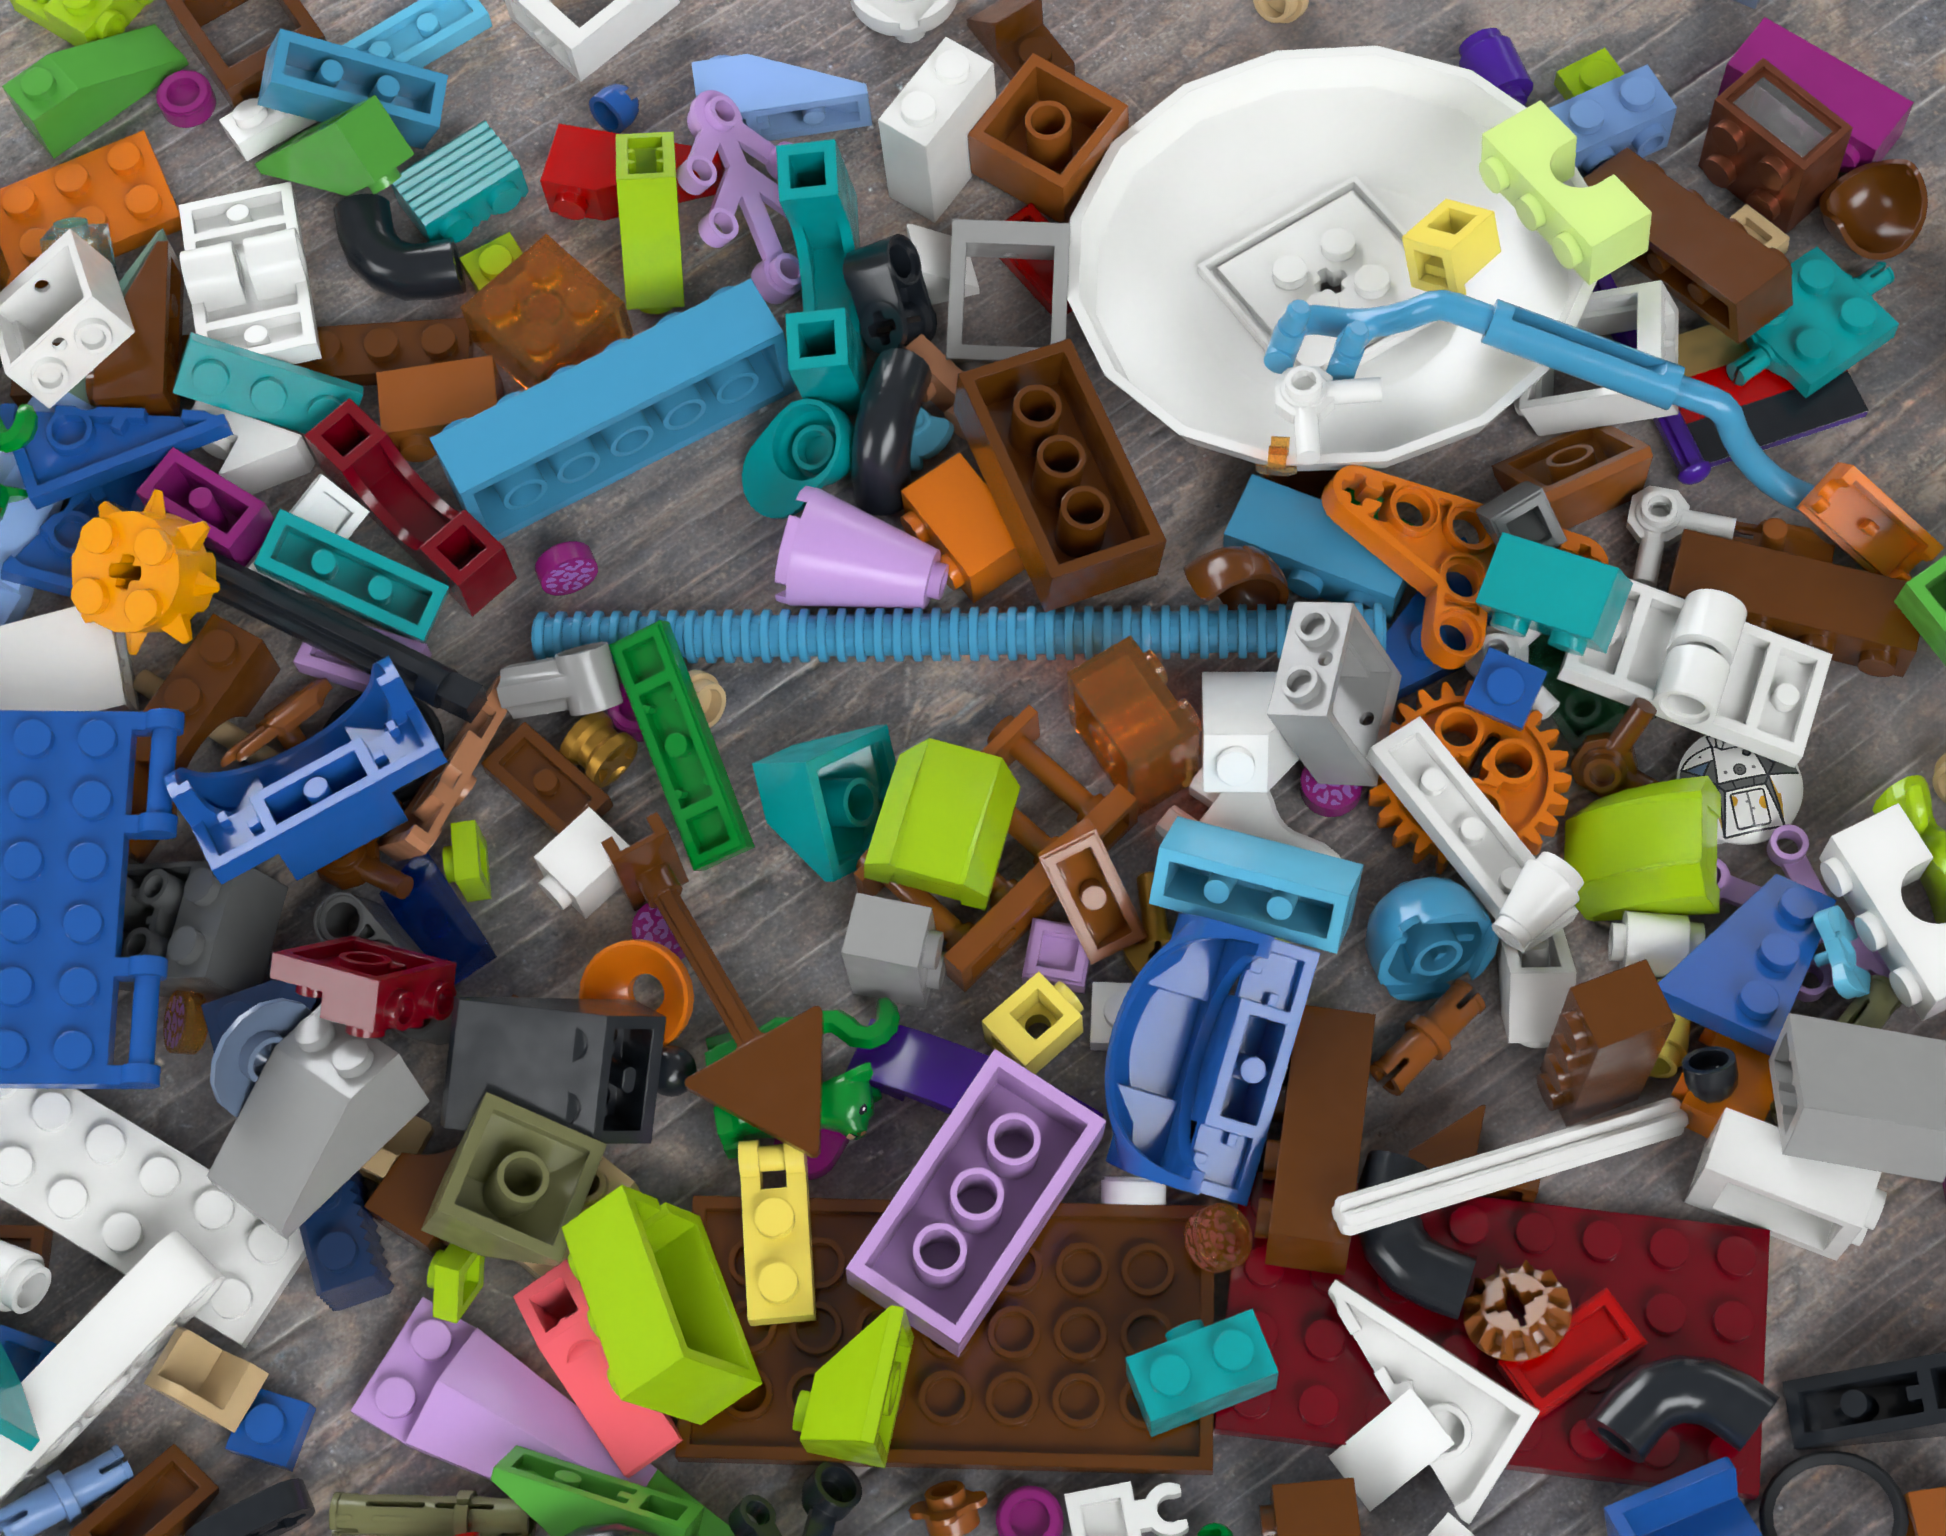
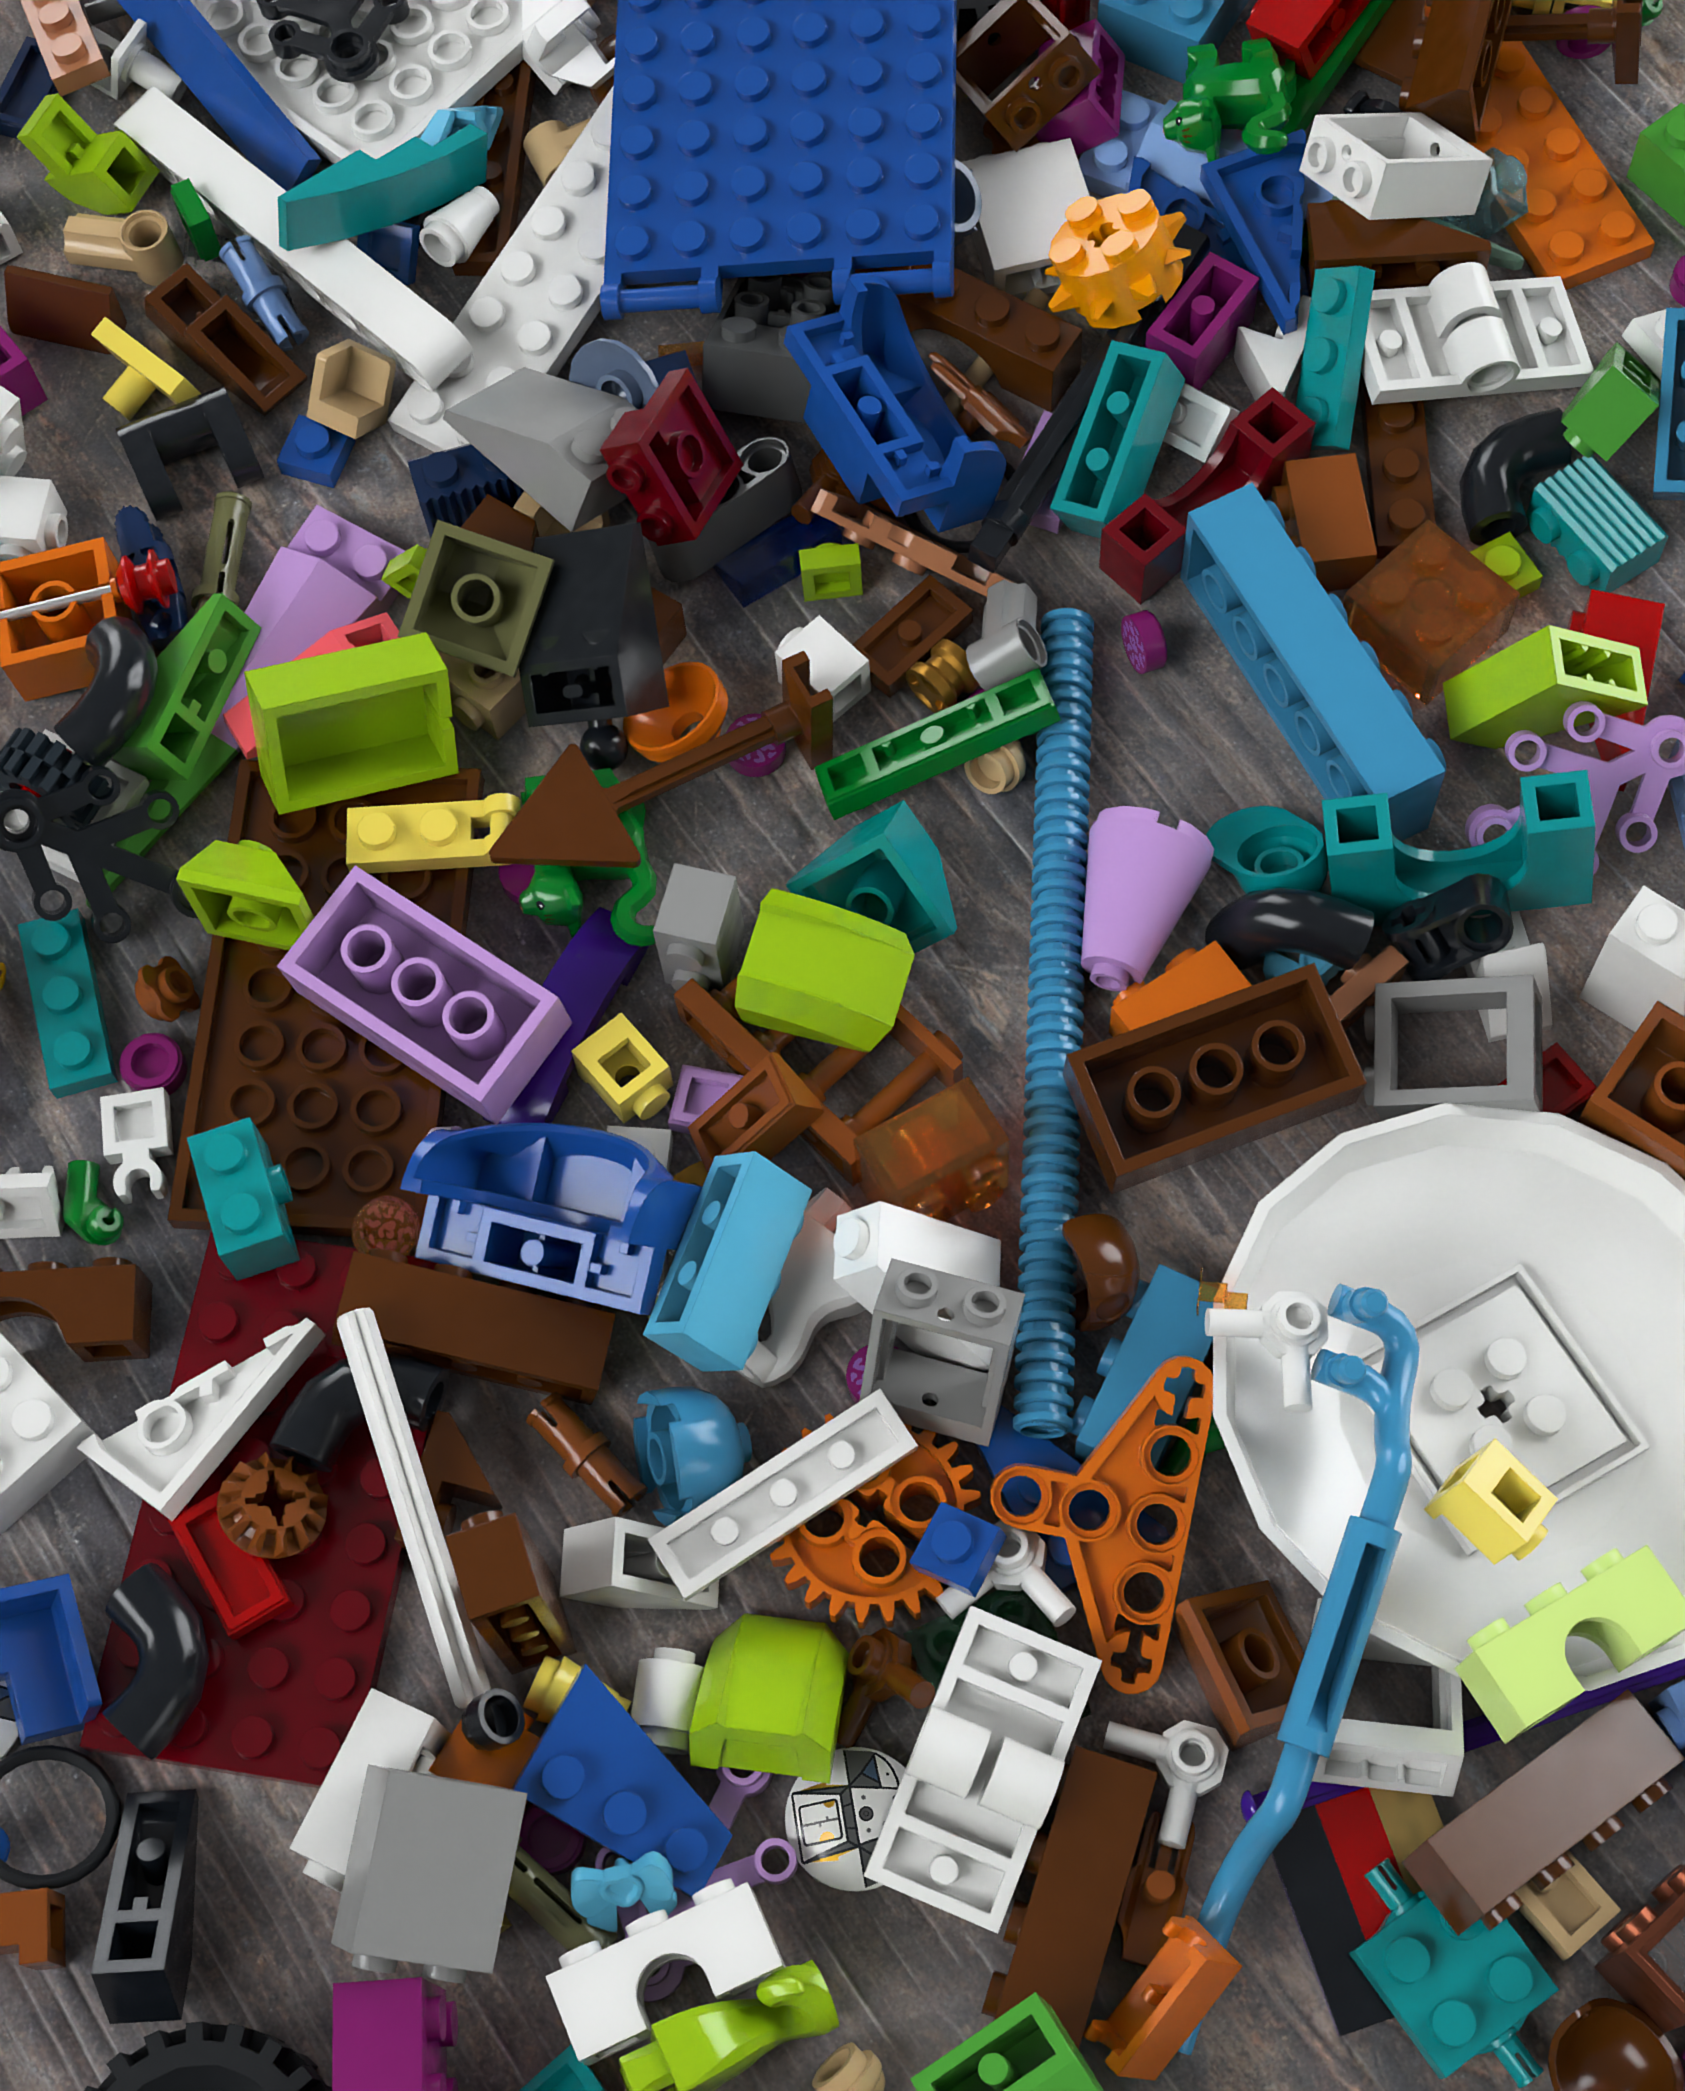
camera: 90 degrees right, 0 degrees up
(1391, 1449) = (159, 1381): white sticker -> none
(1522, 513) = (1154, 1576): dark grey slope -> none
(1537, 899) = (686, 1544): white cone -> none
(1553, 594) = (1046, 1590): teal brick -> none

